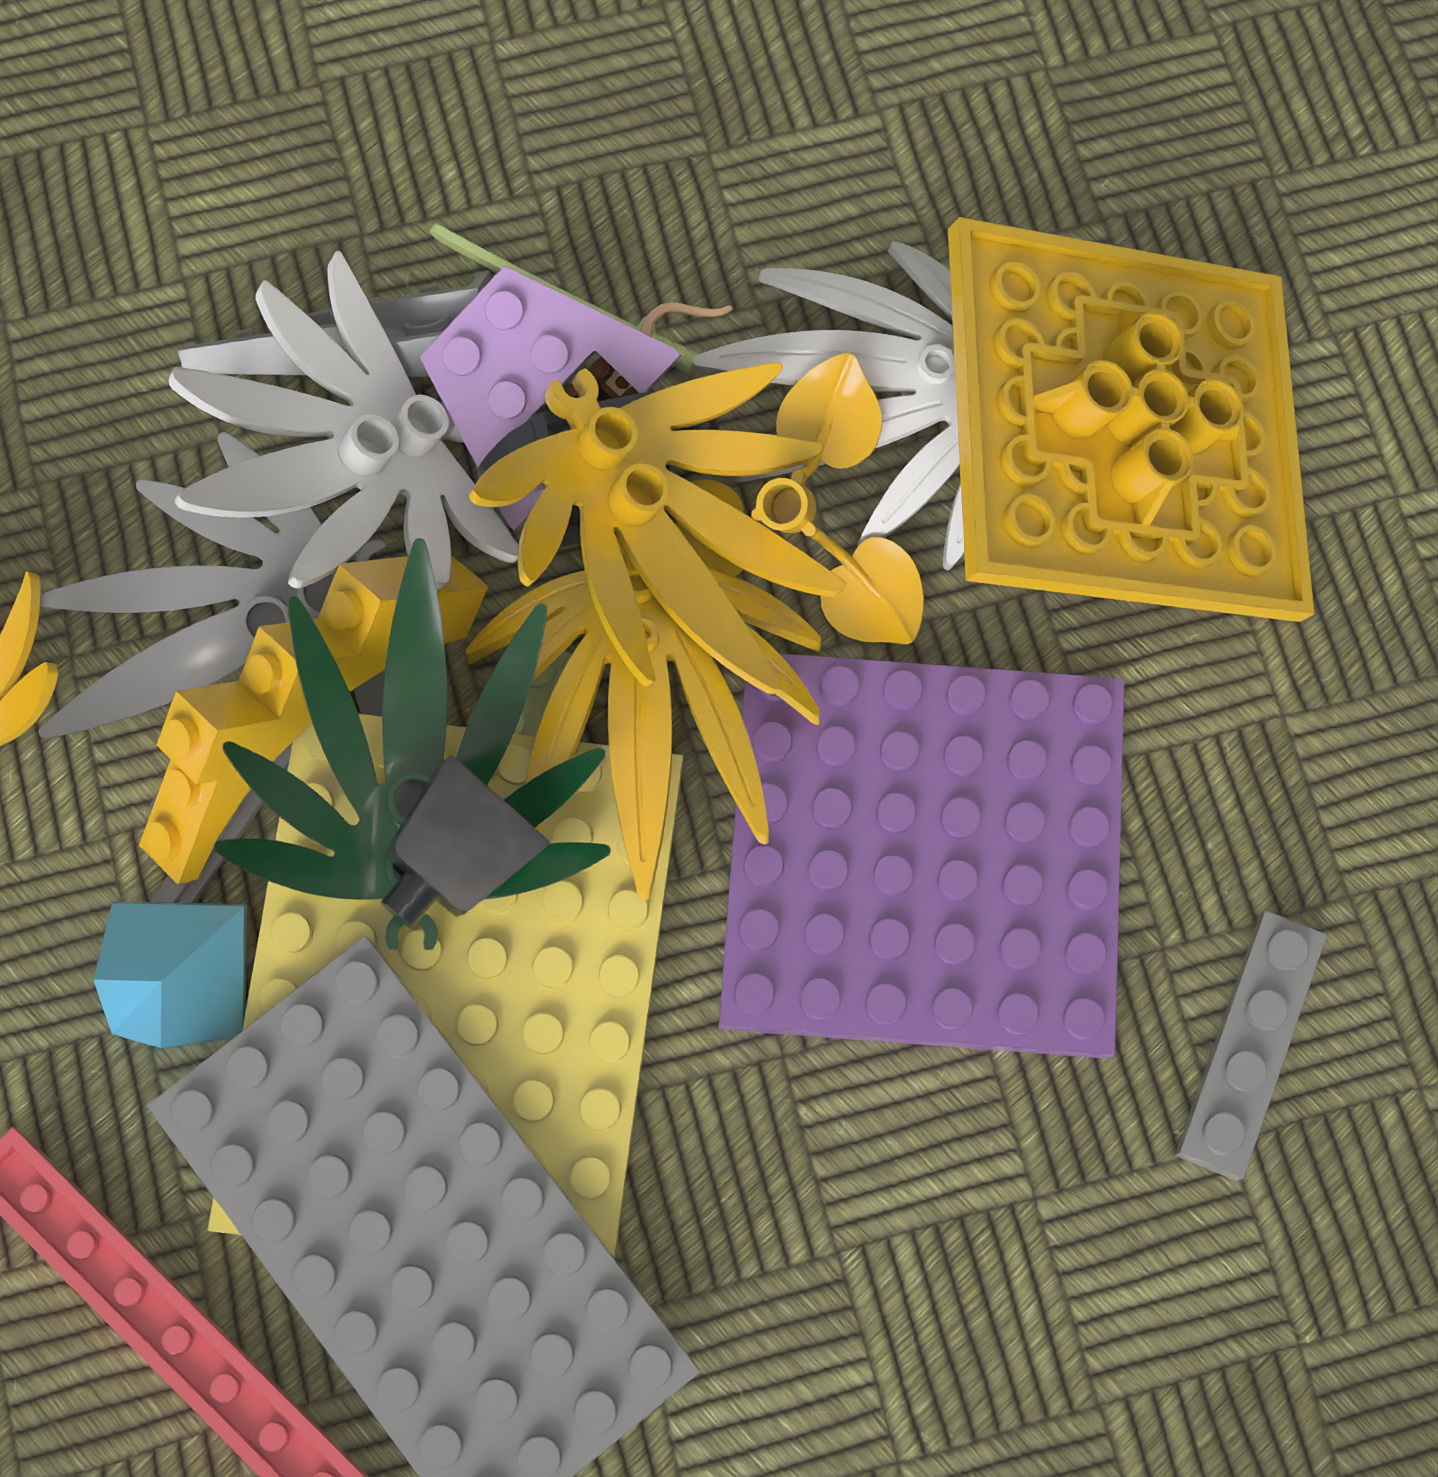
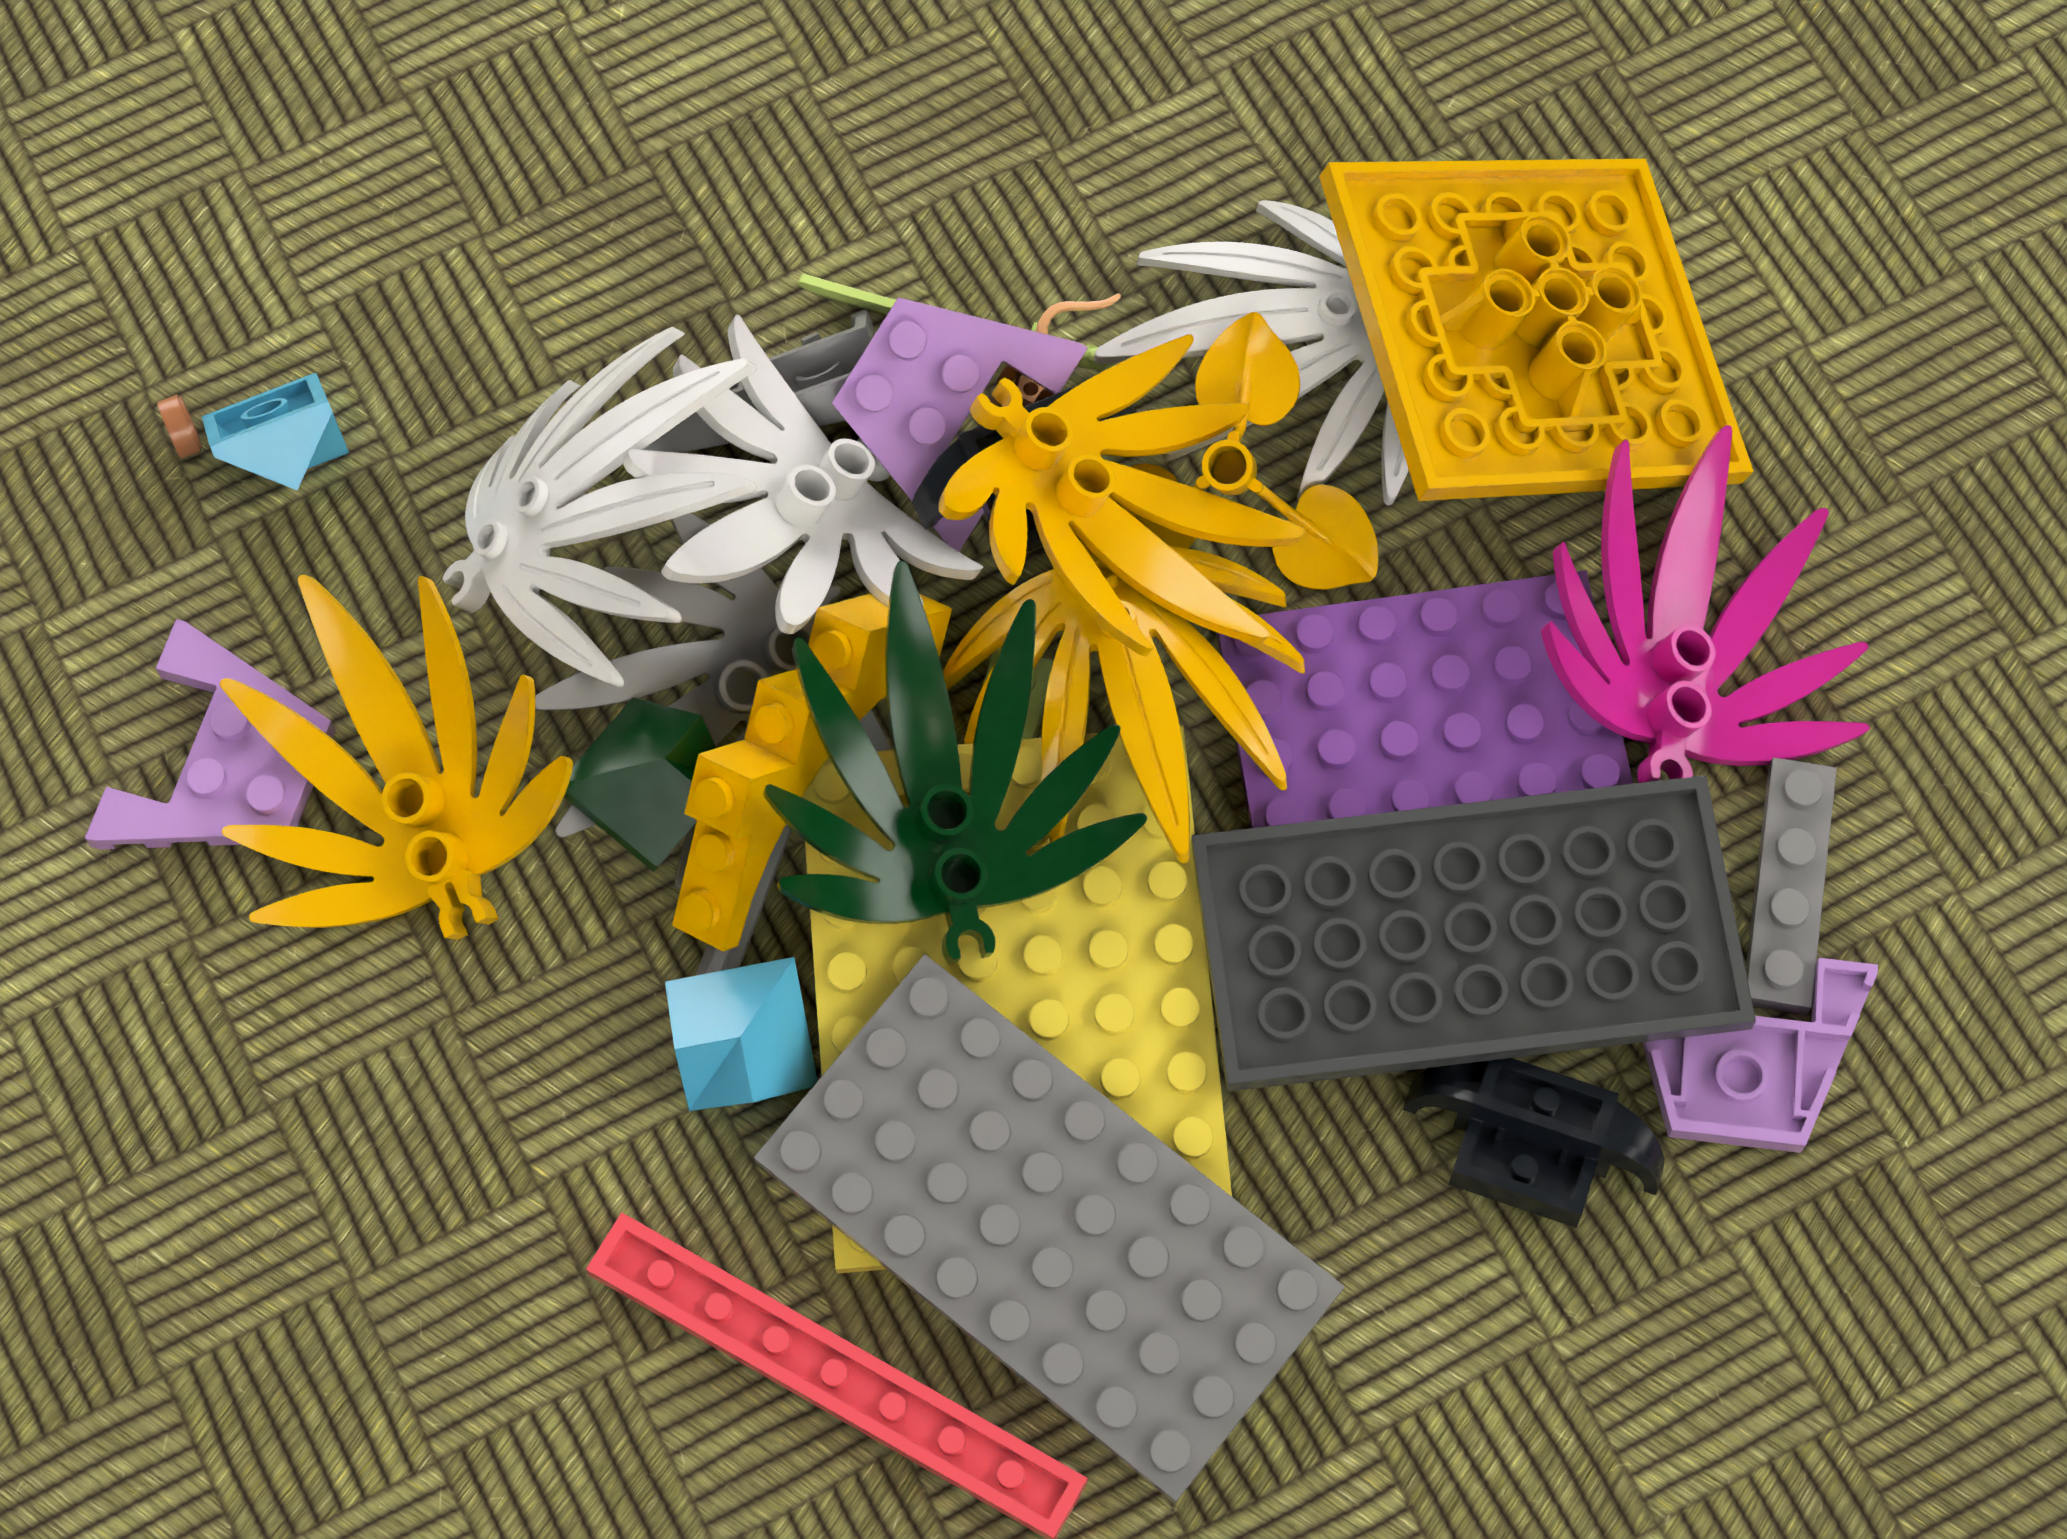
camera: 10 degrees left, 5 degrees down
(103, 404) = (536, 500): none -> white plant
(128, 690) = (640, 778): none -> dark green slope
(456, 845) = (1001, 840): black torso -> none
(917, 1031) = (1469, 933): none -> dark grey plate
(934, 1249) = (1536, 1134): none -> black plate
(1154, 1231) = (1763, 1081): none -> lavender wing
(1183, 804) = (1673, 673): none -> dark pink plant

